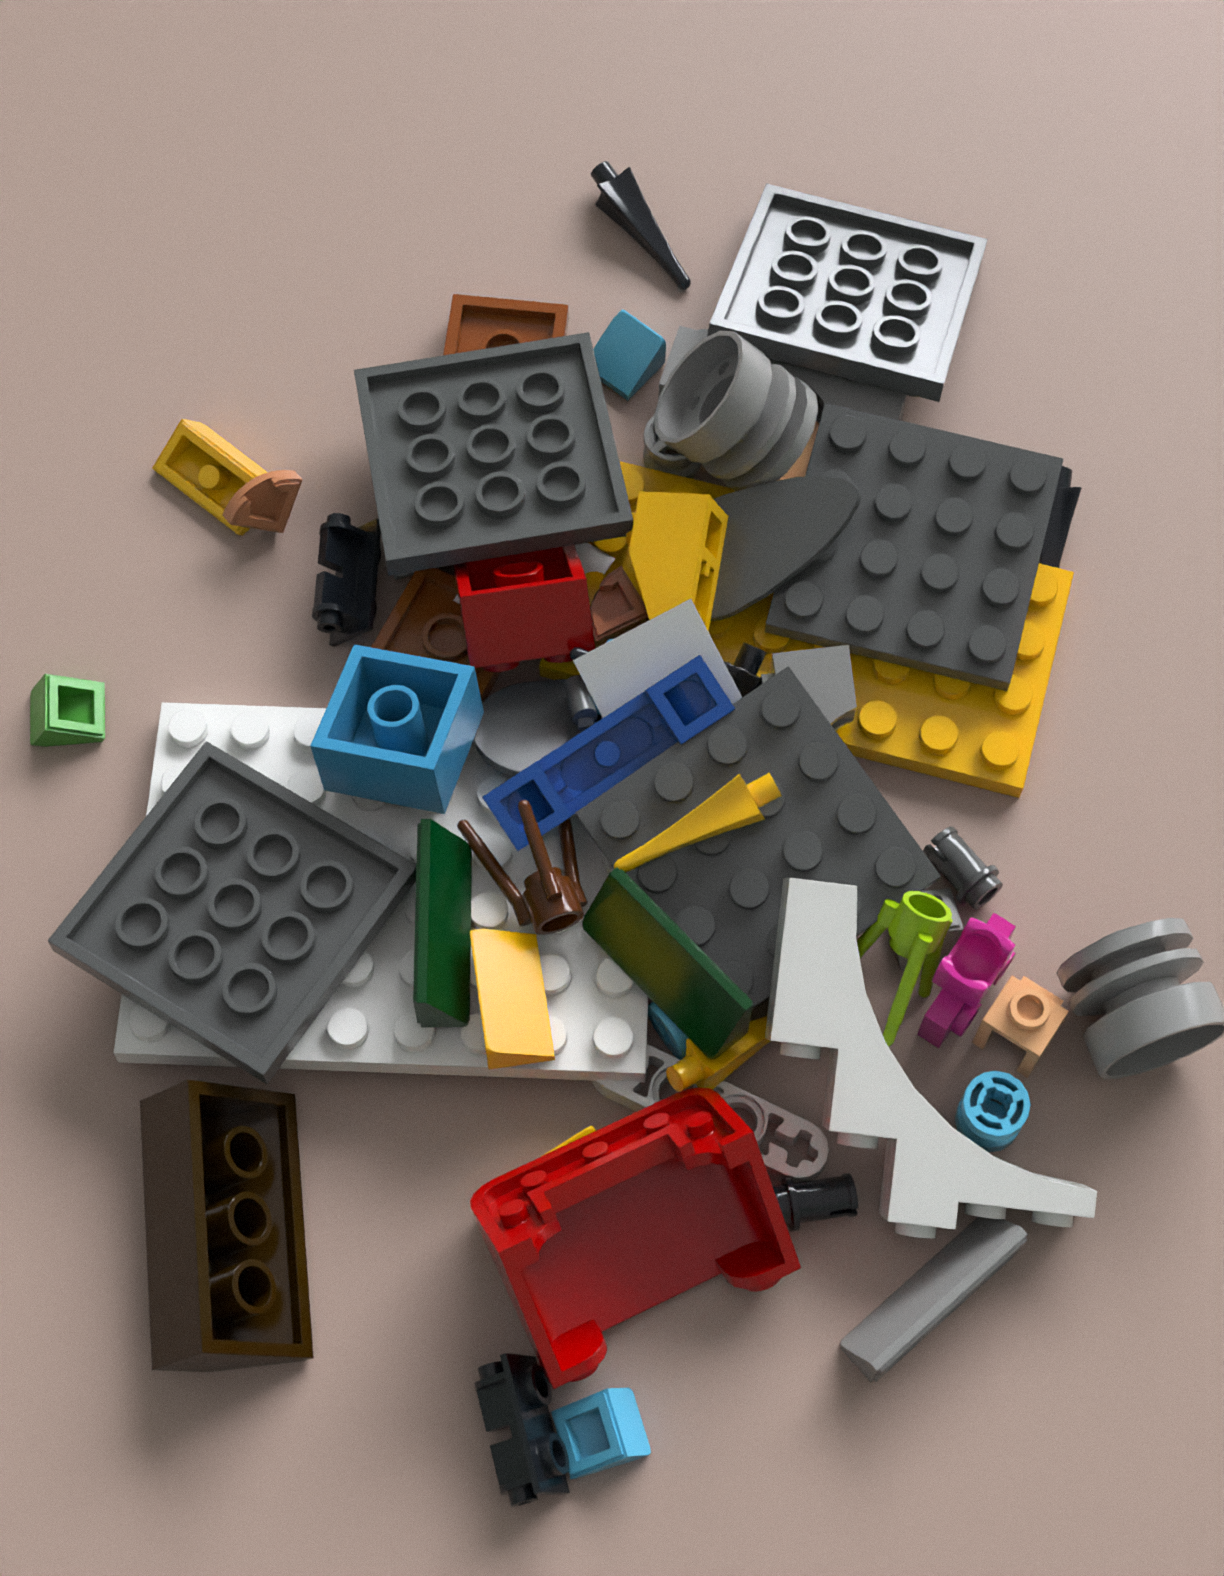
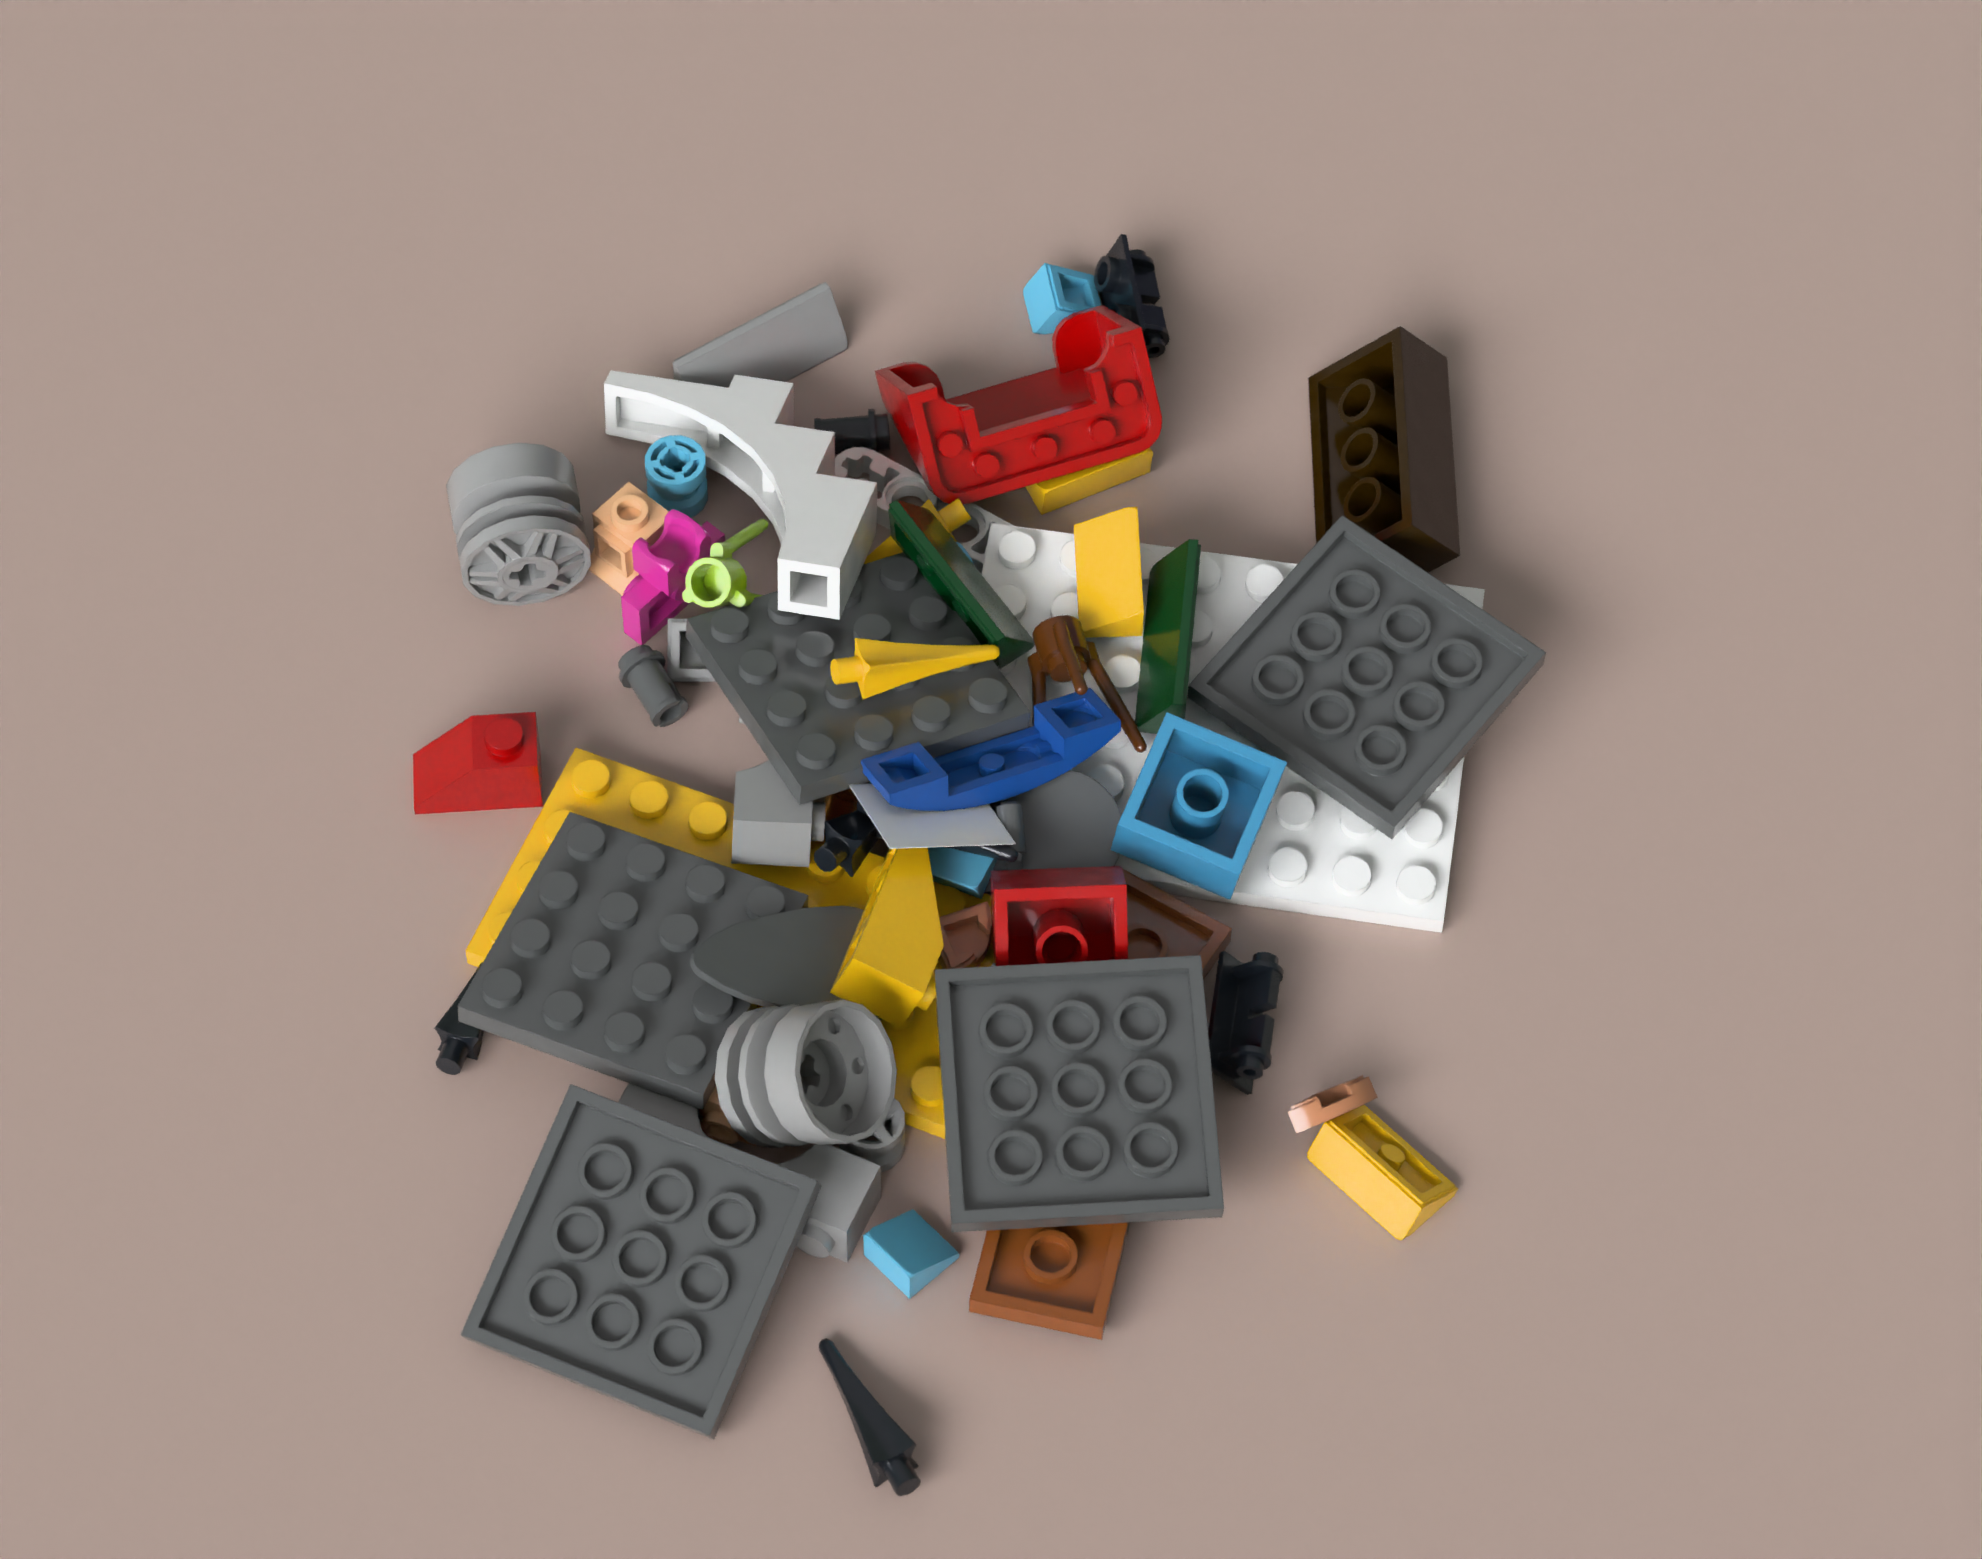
camera: 175 degrees left, 10 degrees down
(66, 711) = (1544, 934): bright green slope -> none
(1106, 752) = (480, 766): none -> red slope

